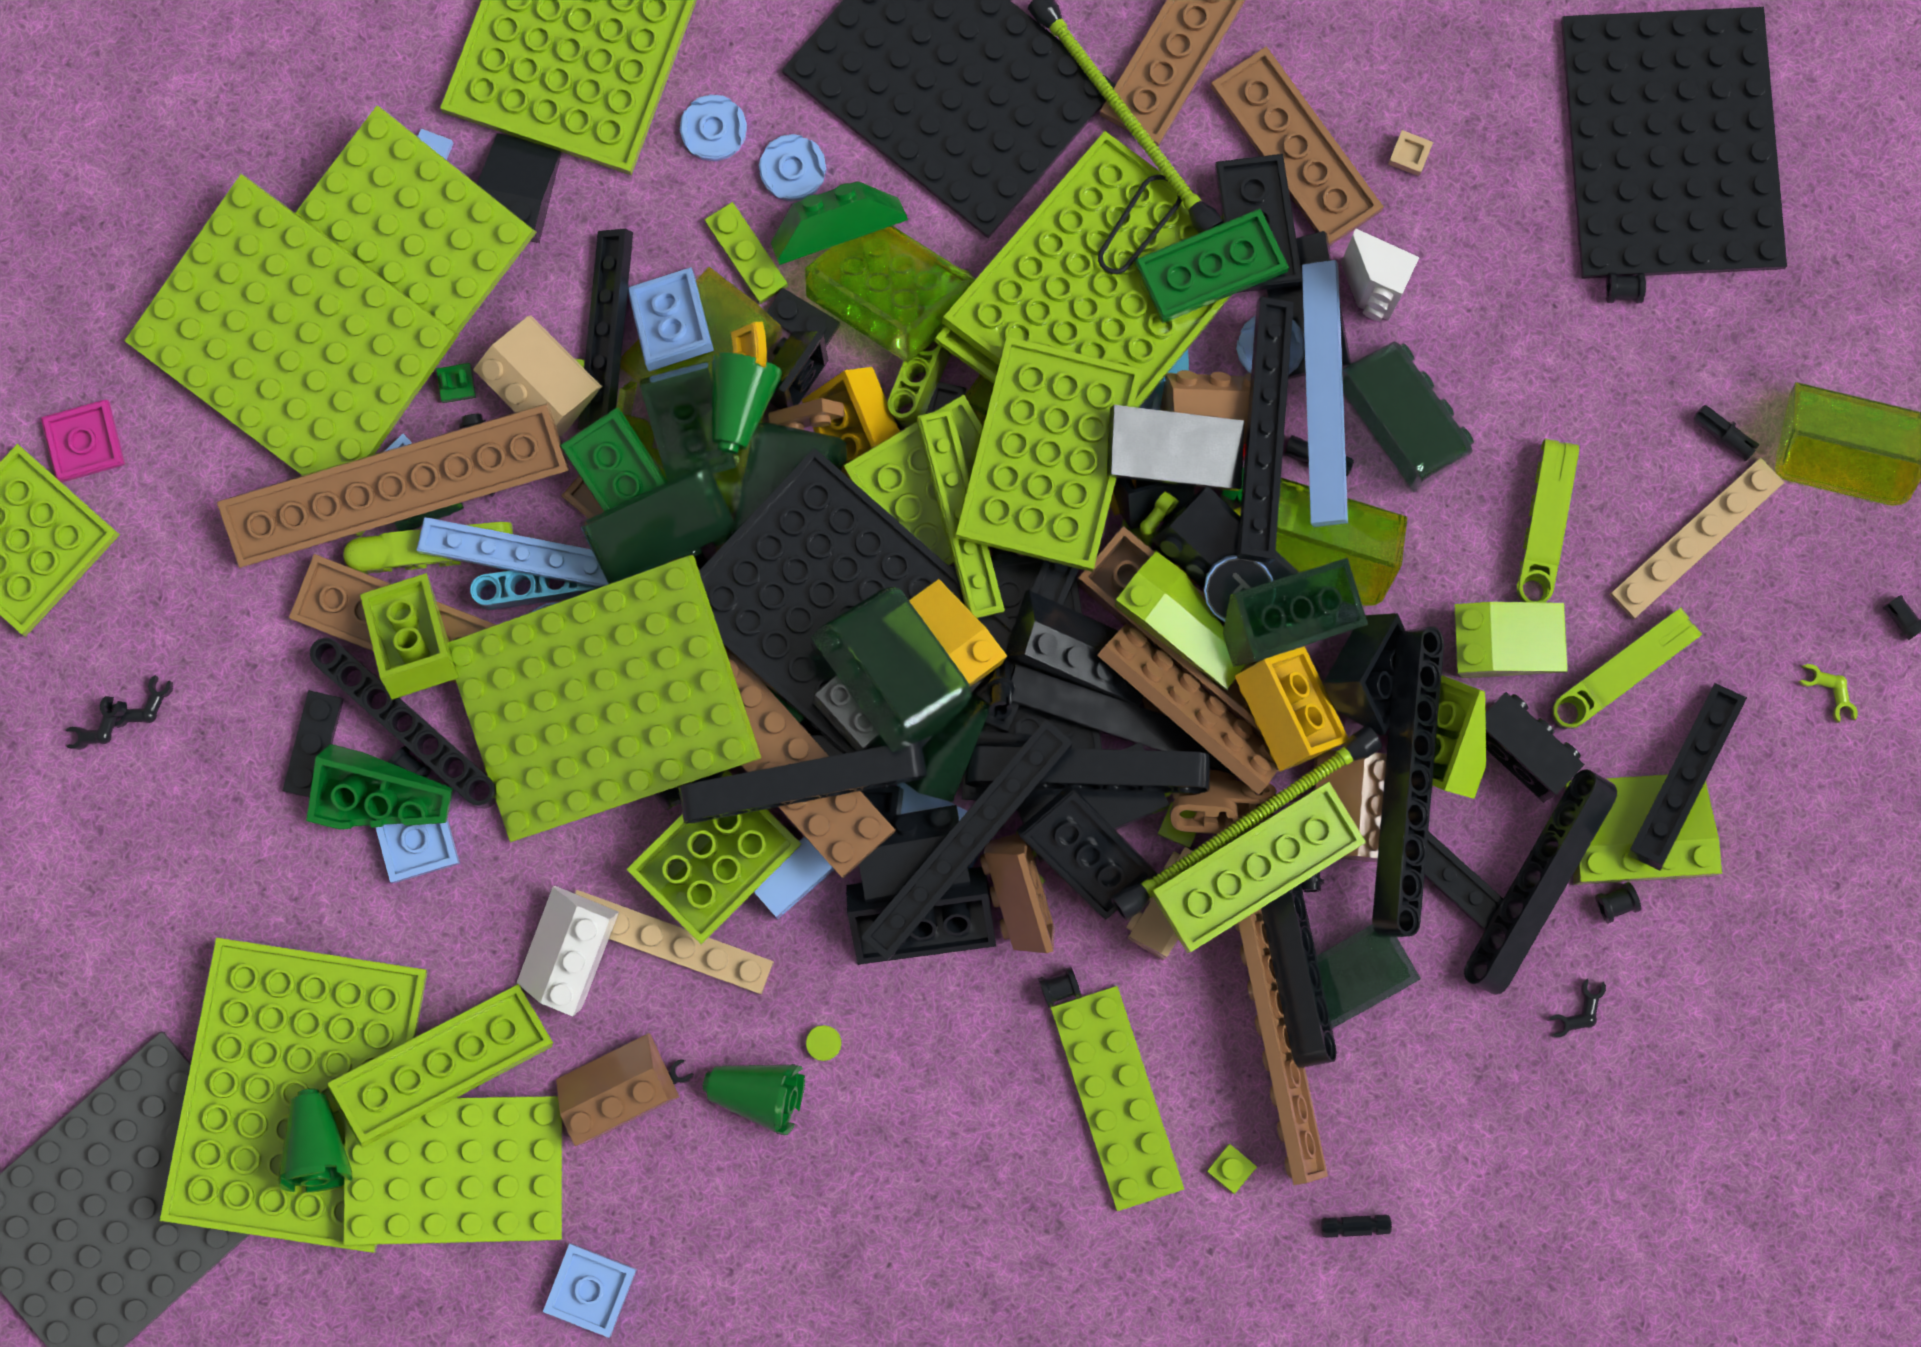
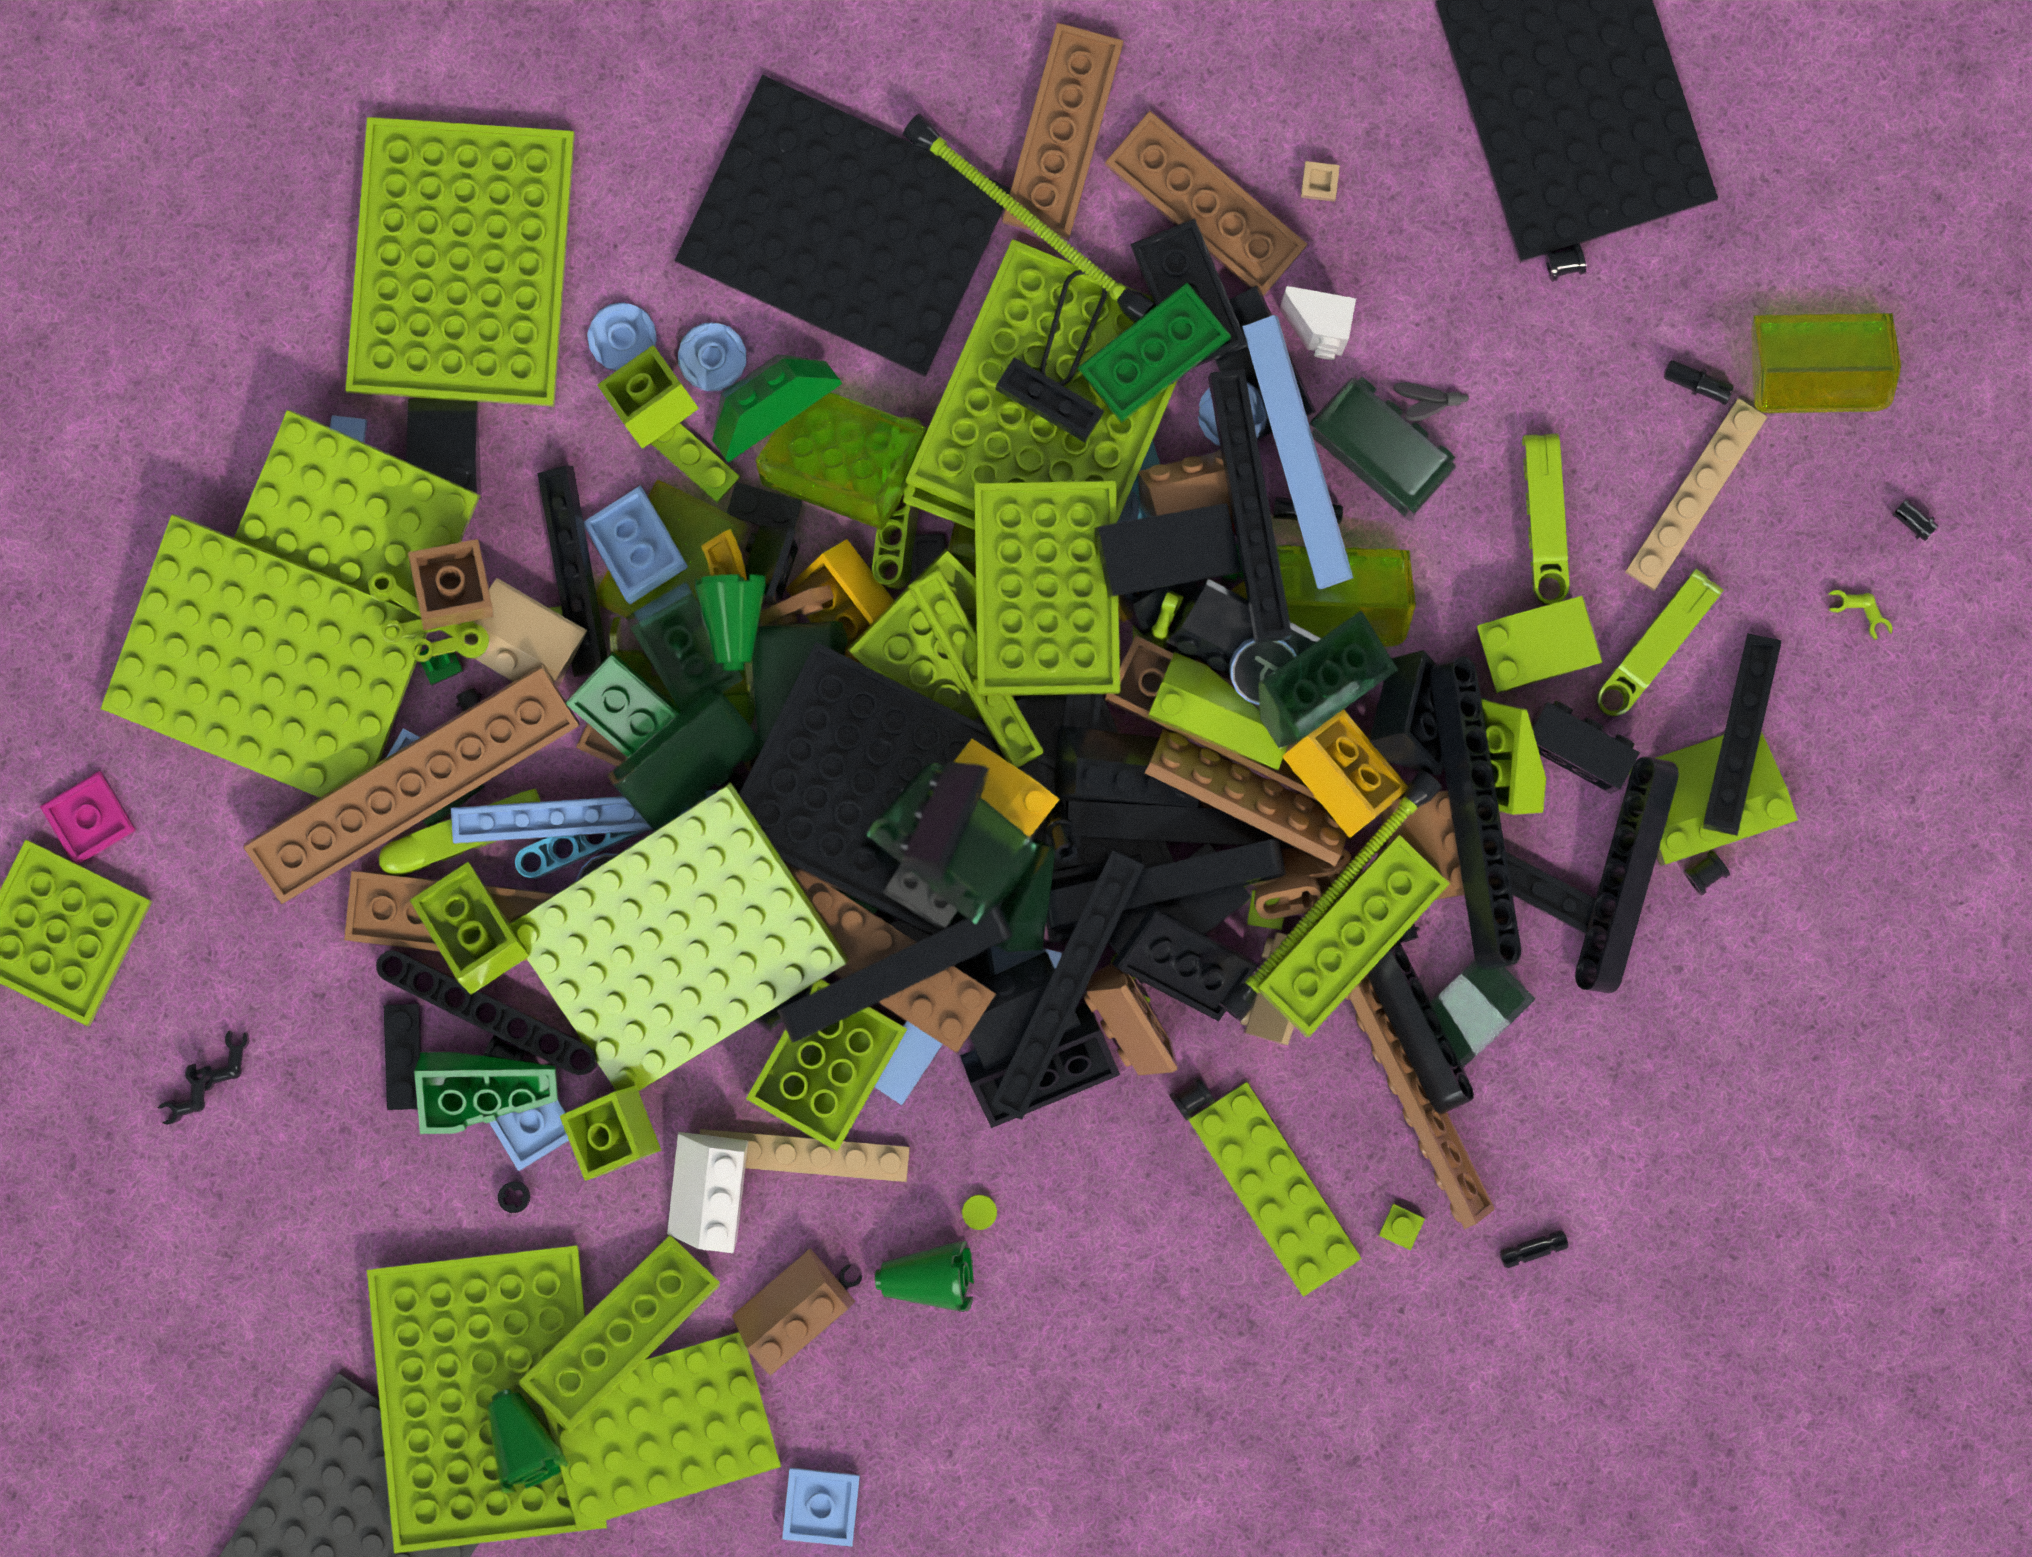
camera: 15 degrees left, 5 degrees up
(384, 897) = (512, 1208): none -> black bush
(456, 331) = (457, 632): none -> lime plant
(480, 301) = (450, 584): none -> medium nougat brick
(487, 868) = (610, 1133): none -> lime brick
(720, 184) = (647, 396): none -> lime brick
(888, 638) = (943, 819): none -> black slope
(1100, 281) = (1049, 400): none -> black plate
(1463, 383) = (1431, 400): none -> dark grey piece
(1588, 1016) = (1703, 993): black arm -> none

